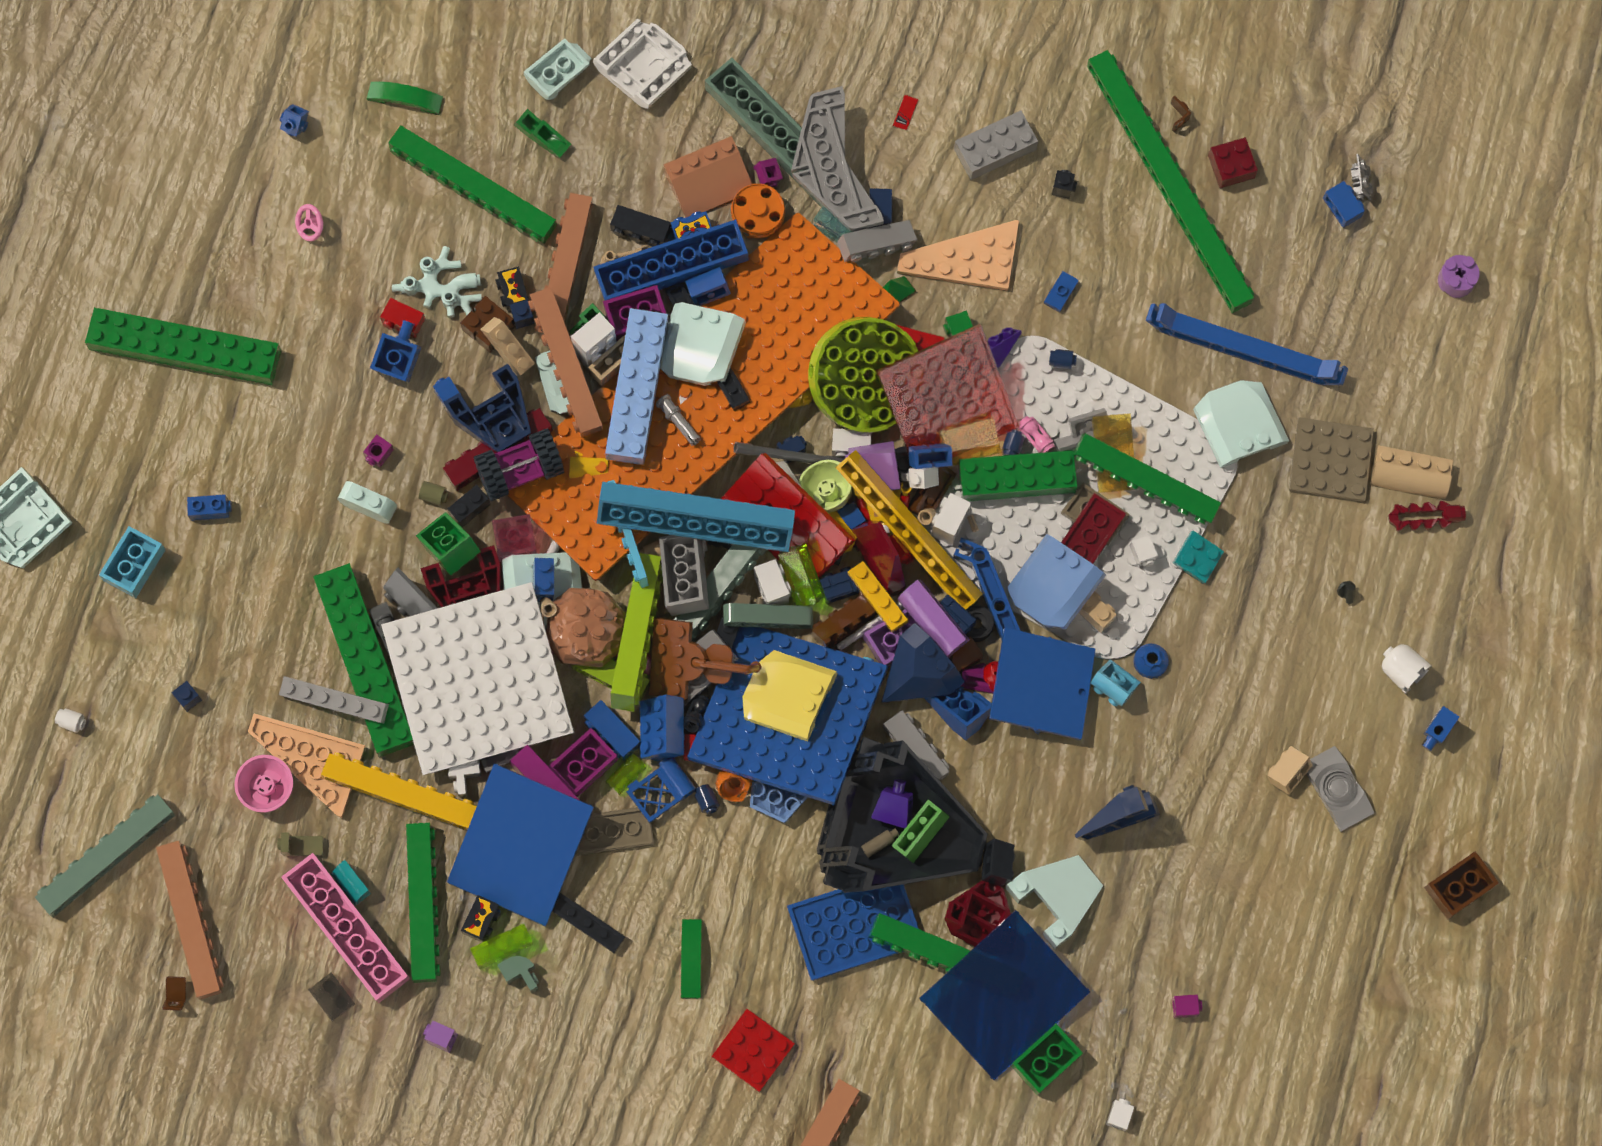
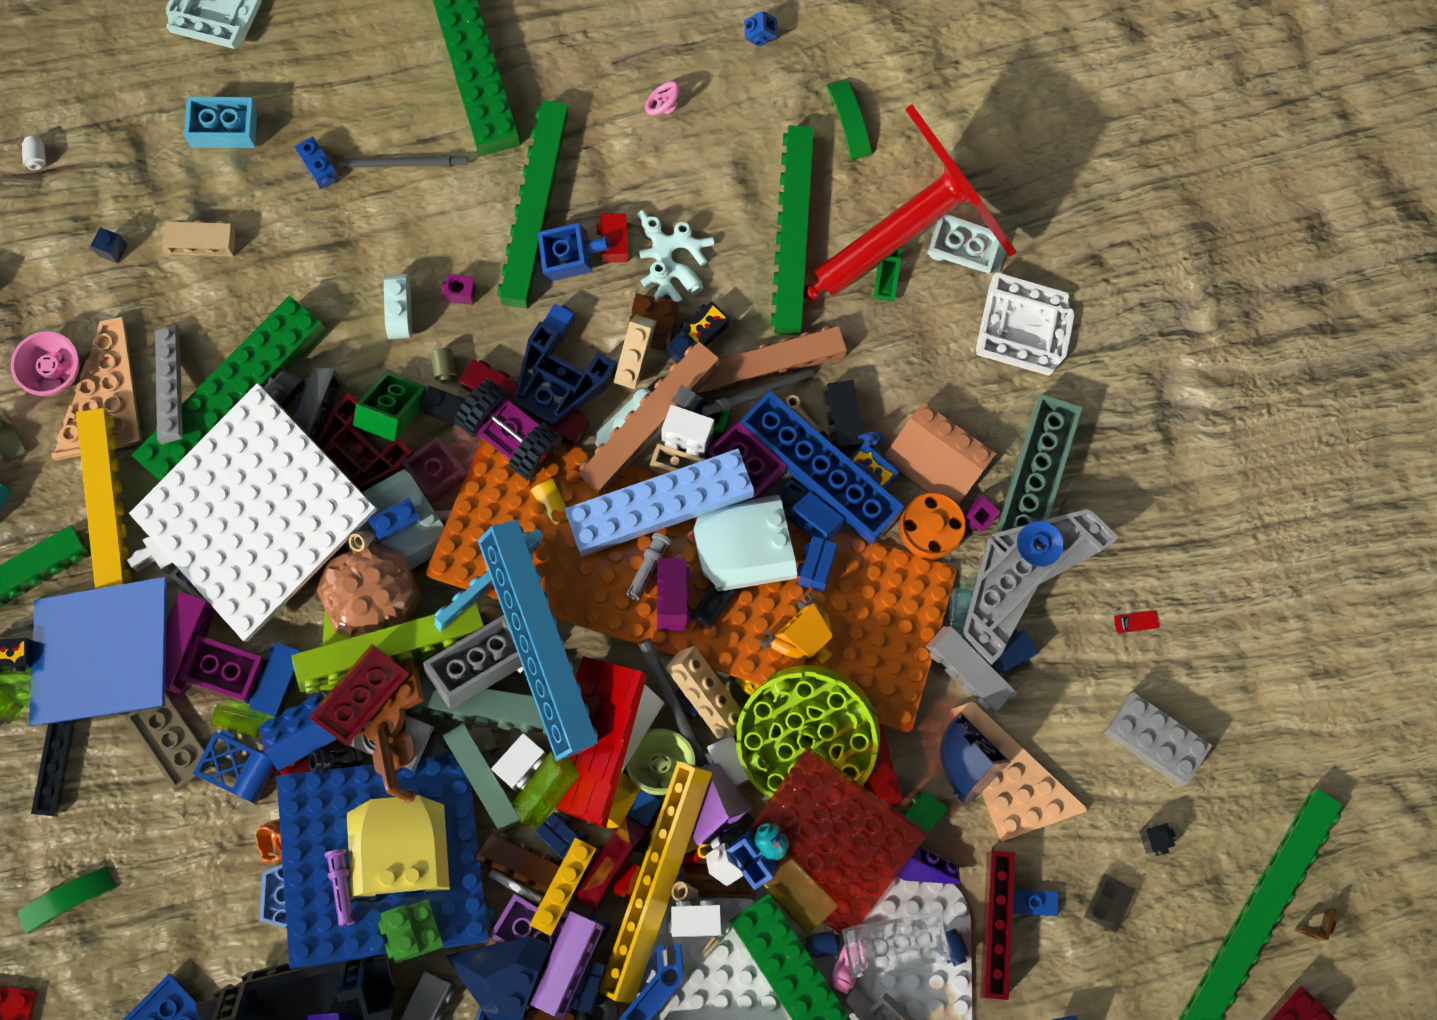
camera: 60 degrees right, 0 degrees up
(220, 625) = (199, 238): none -> tan brick
(262, 412) = (445, 161): none -> dark grey bar
(339, 361) = (534, 204): none -> green brick
(523, 97) = (904, 223): none -> red piece
(574, 322) = (689, 400): none -> dark grey leg
(588, 301) = (724, 404): none -> dark grey bar
(664, 663) = (359, 694): none -> dark red plate
(669, 215) = (872, 438): none -> blue piece
(706, 799) = (249, 821): dark blue brick -> none
(711, 412) = (672, 594): none -> magenta wedge
(742, 302) = (817, 564): none -> blue brick
(786, 739) = (338, 876): none -> medium lavender pin
(791, 337) = (803, 634): none -> light orange torso
(794, 427) = (705, 691): none -> tan brick
(821, 133) = (1046, 535): none -> blue dish
(853, 710) = (410, 931): none -> bright green plate
(899, 288) = (931, 721): green slope -> none
(926, 435) = (771, 841): none -> teal head
(939, 277) = (969, 759): none -> dark blue brick
(1040, 393) = (895, 944): none -> clear brick
(1063, 321) = (997, 925): none -> dark red brick
(1089, 241) = (1109, 903): none -> clear smoke plate

